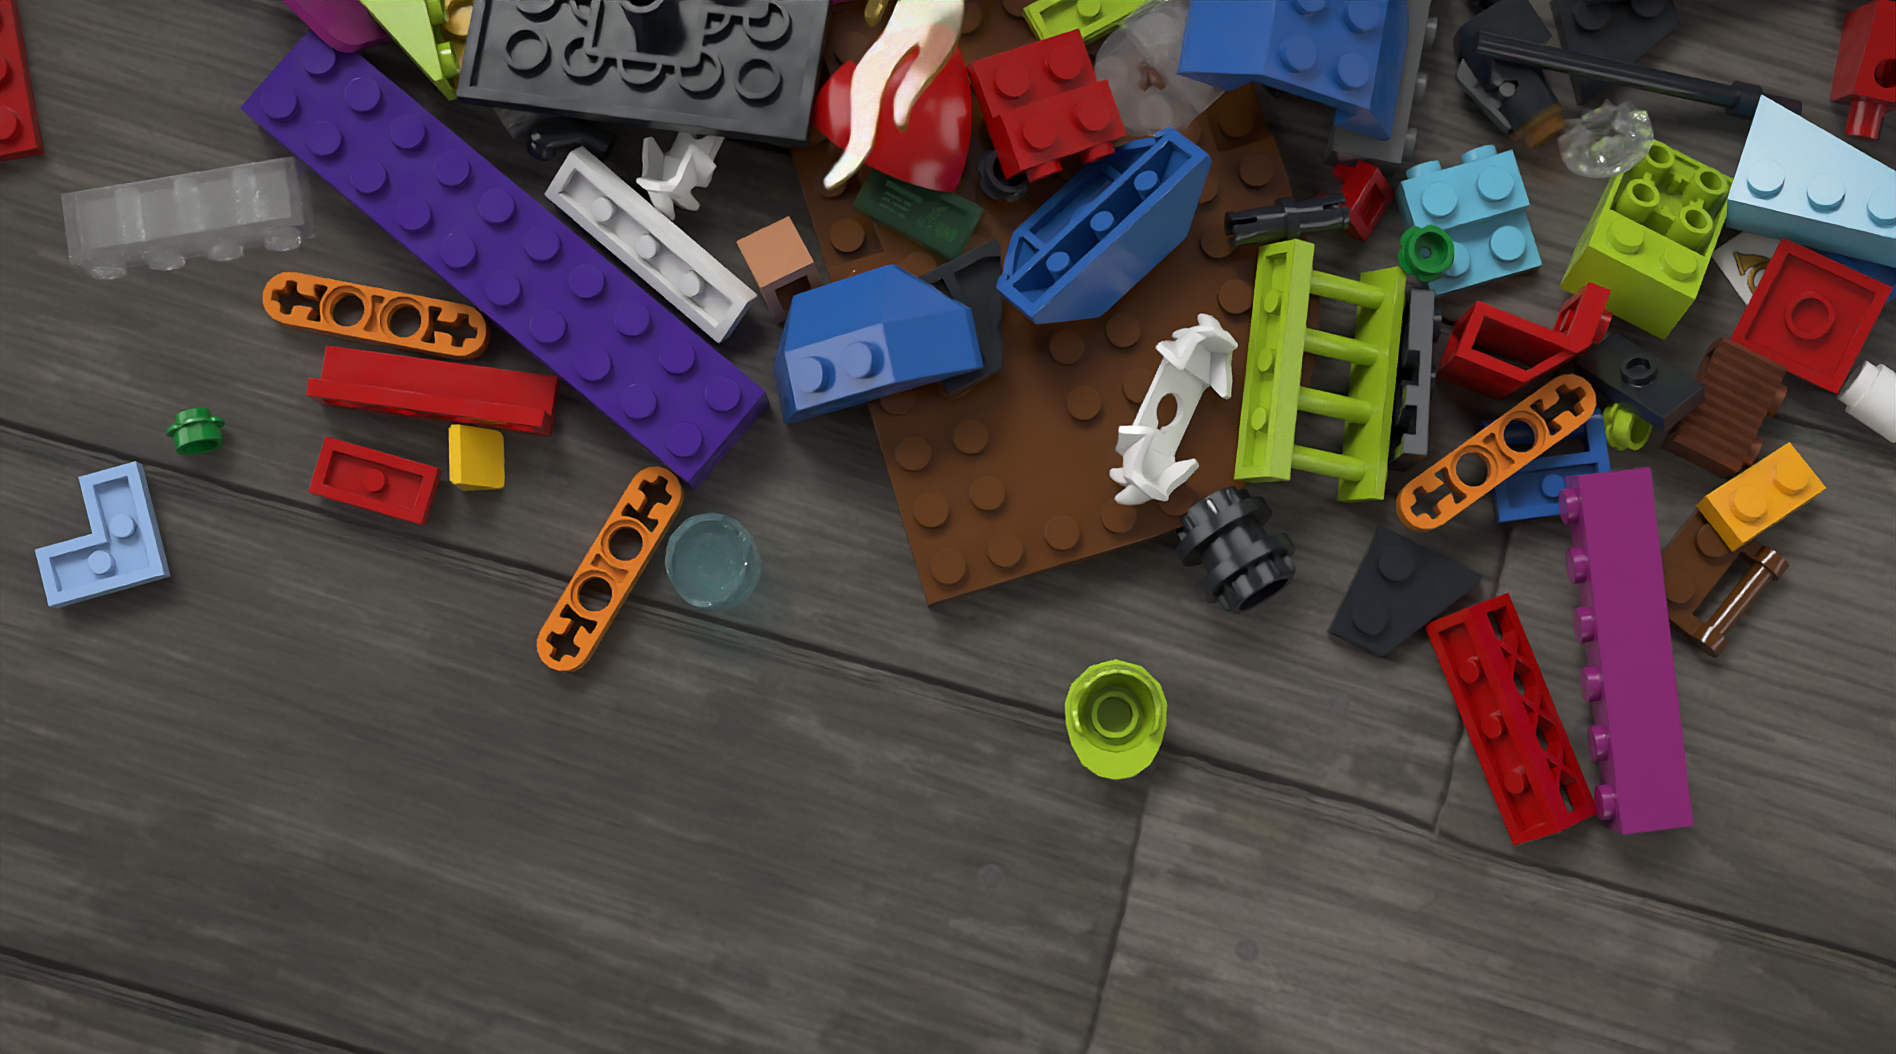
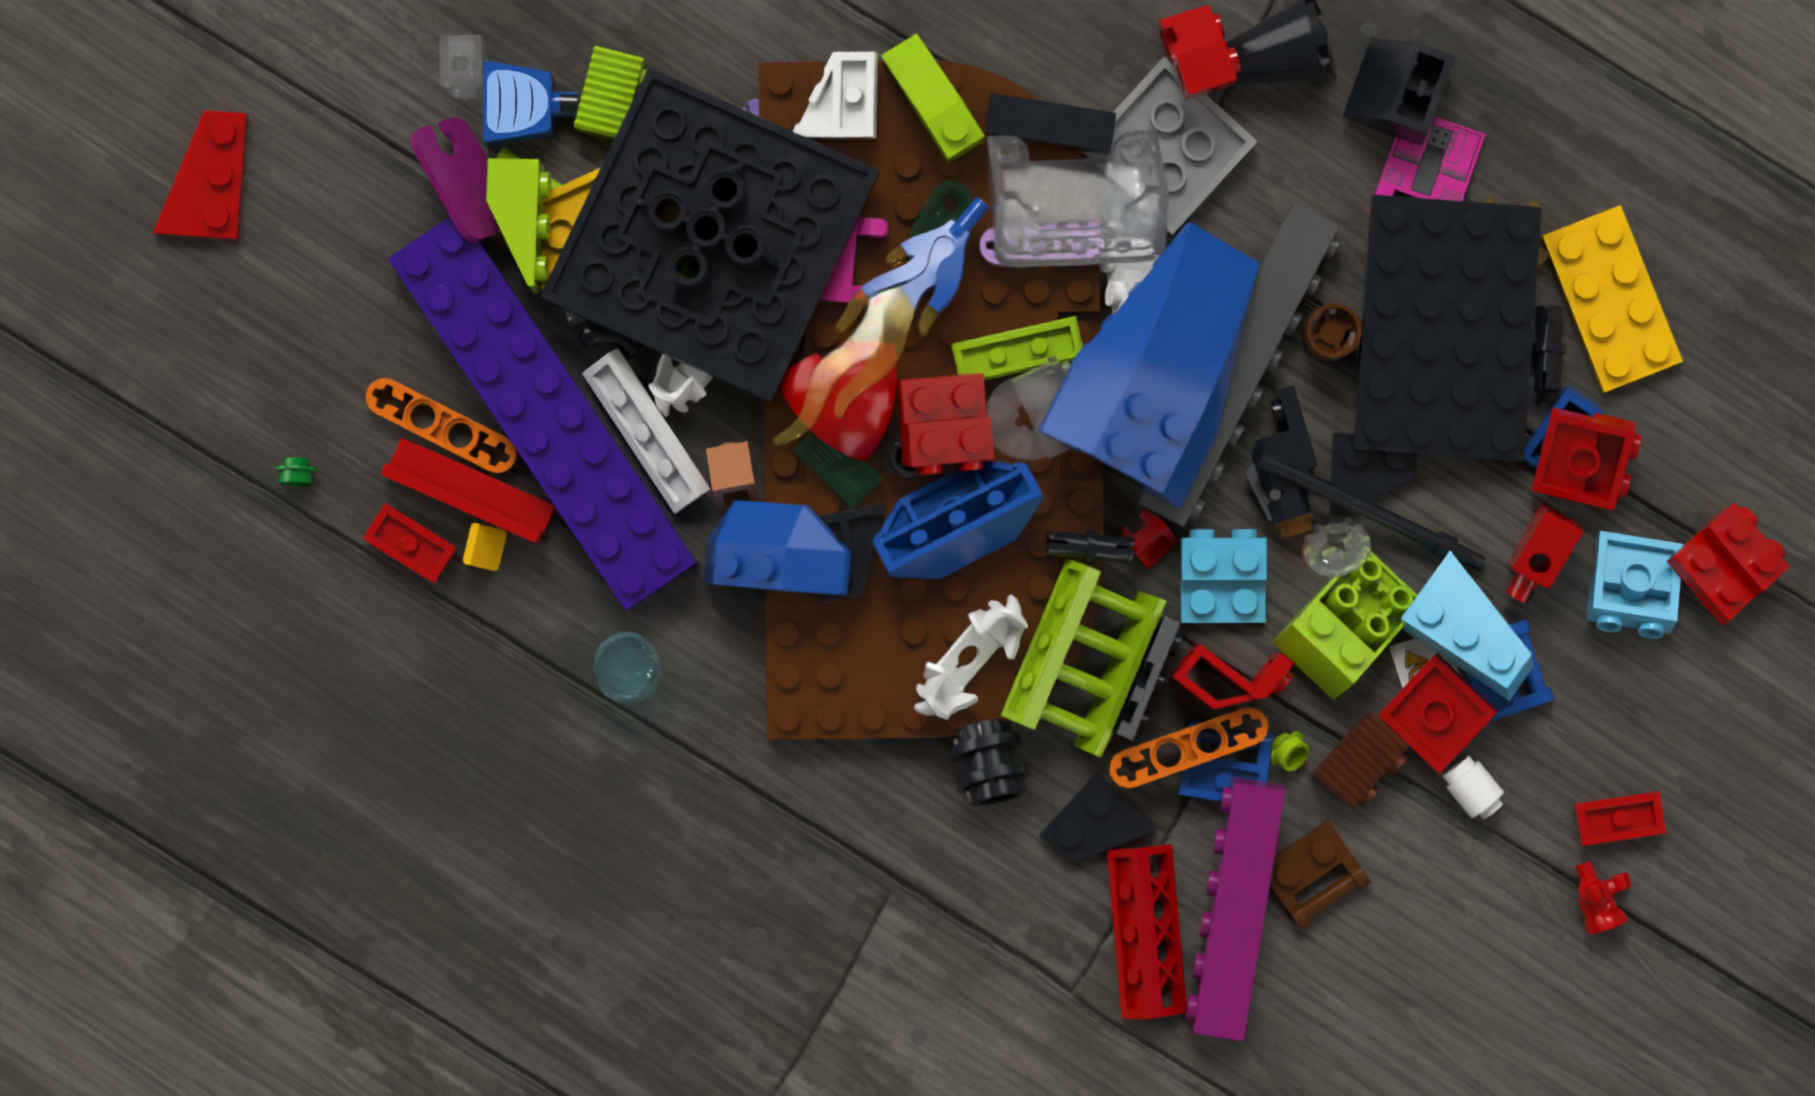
camera: 20 degrees right, 5 degrees up
(123, 542) = (225, 538): light blue plate -> none
(189, 217) = (330, 319): clear brick -> none
(603, 565) = (552, 646): orange beam -> none
(1115, 718) = (872, 855): lime piece -> none
(1440, 248) = (1193, 596): green plate -> none
(1640, 381) = (1303, 726): black plate -> none
(1760, 496) = (1365, 829): light orange plate -> none

